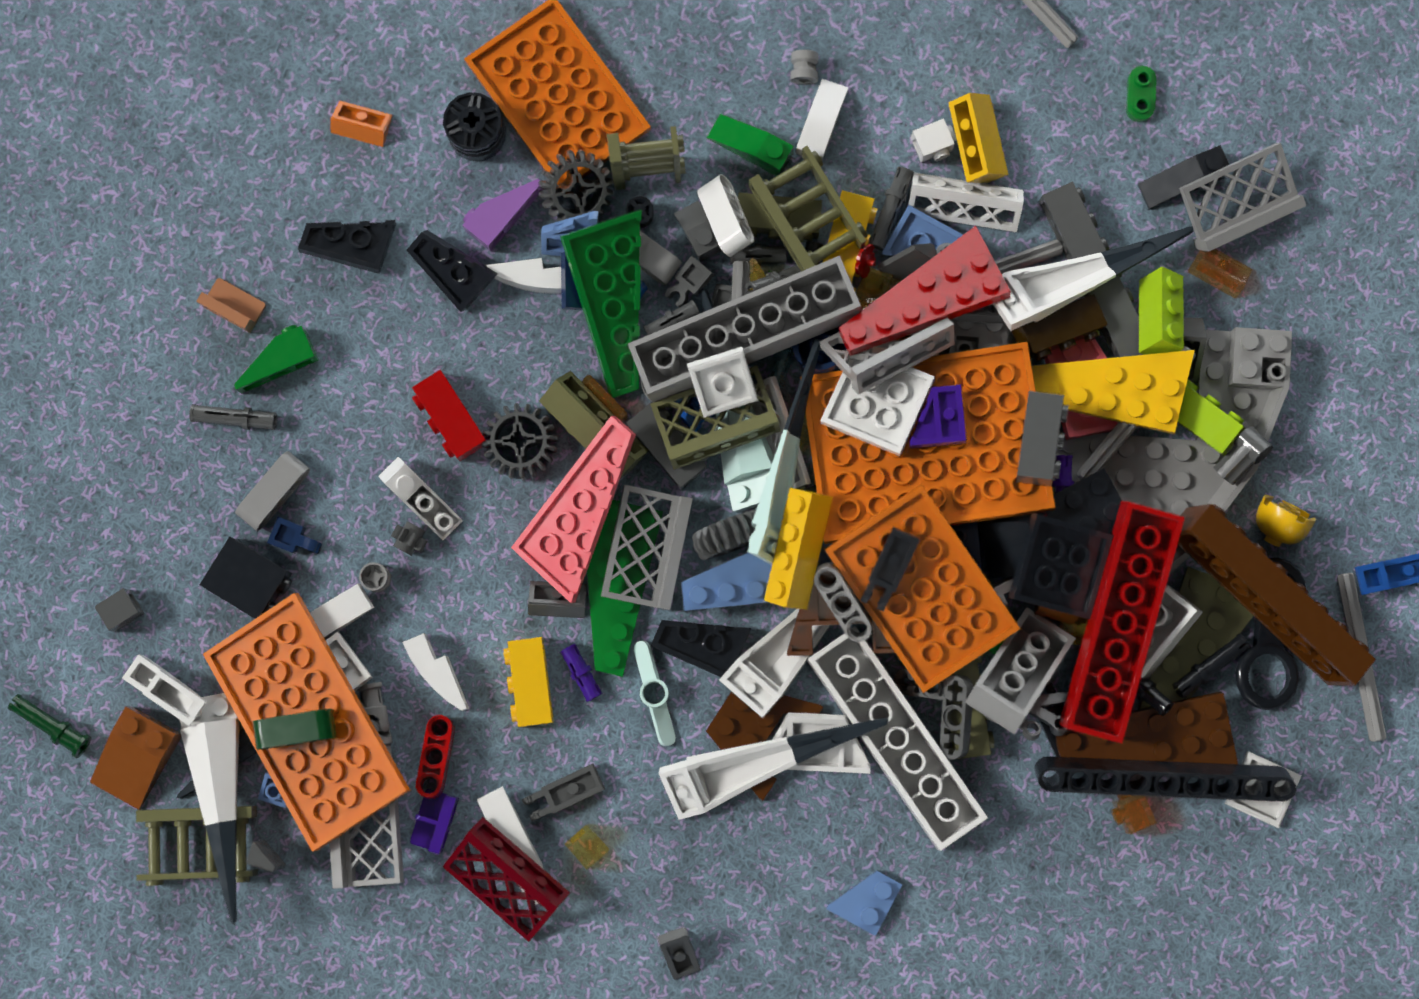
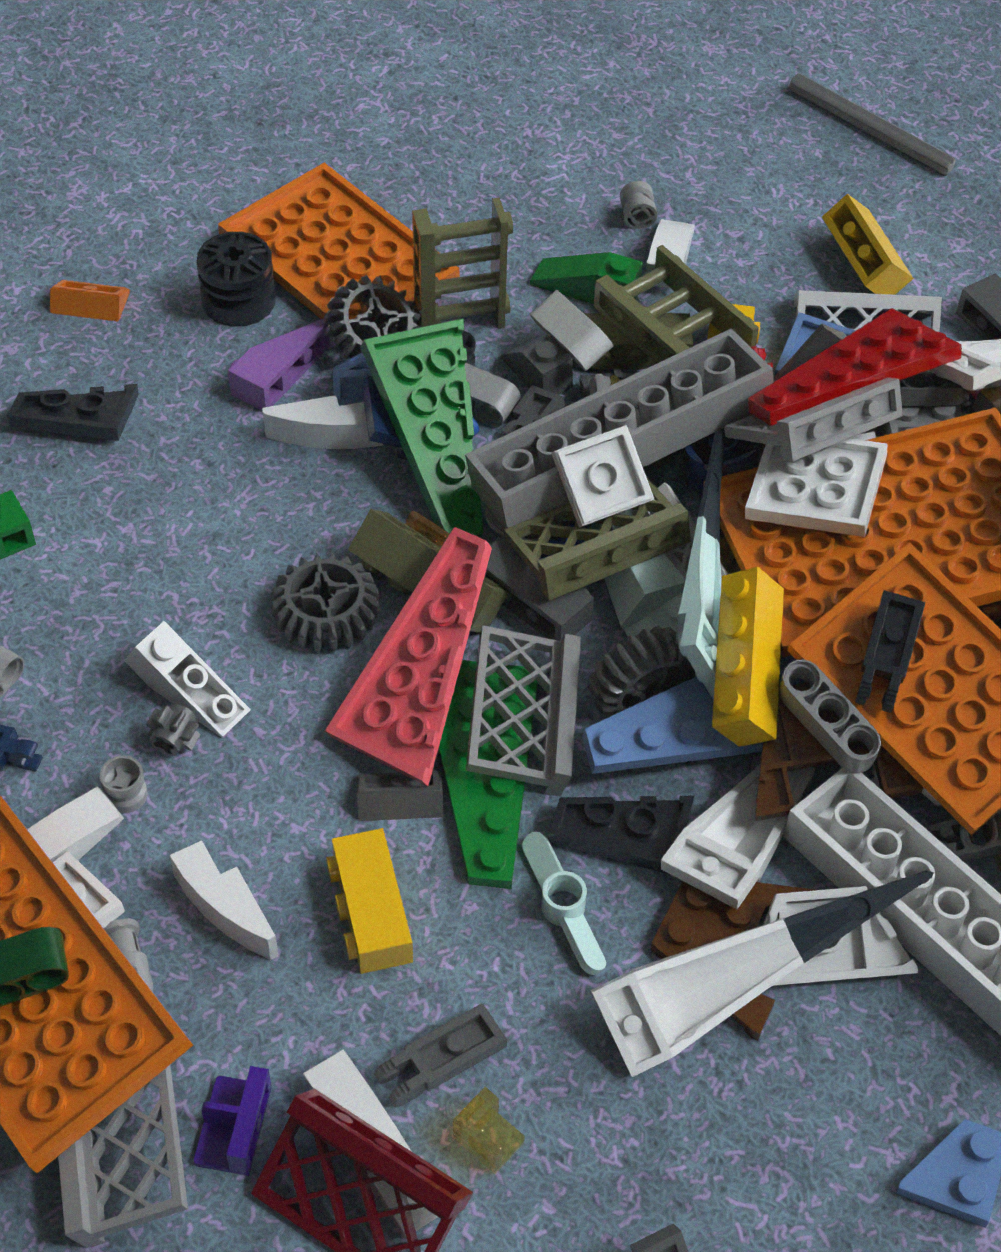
camera: 10 degrees left, 30 degrees down
(431, 743) = (232, 1037): red beam -> none
(448, 416) = (222, 581): red brick -> none
(451, 269) = (215, 423): black wing -> none
(581, 672) = (447, 884): dark purple pin -> none
(894, 198) = (778, 316): dark grey pin -> none
(933, 141) = (811, 258): white brick -> none
(941, 419) = (911, 488): dark purple wing -> none

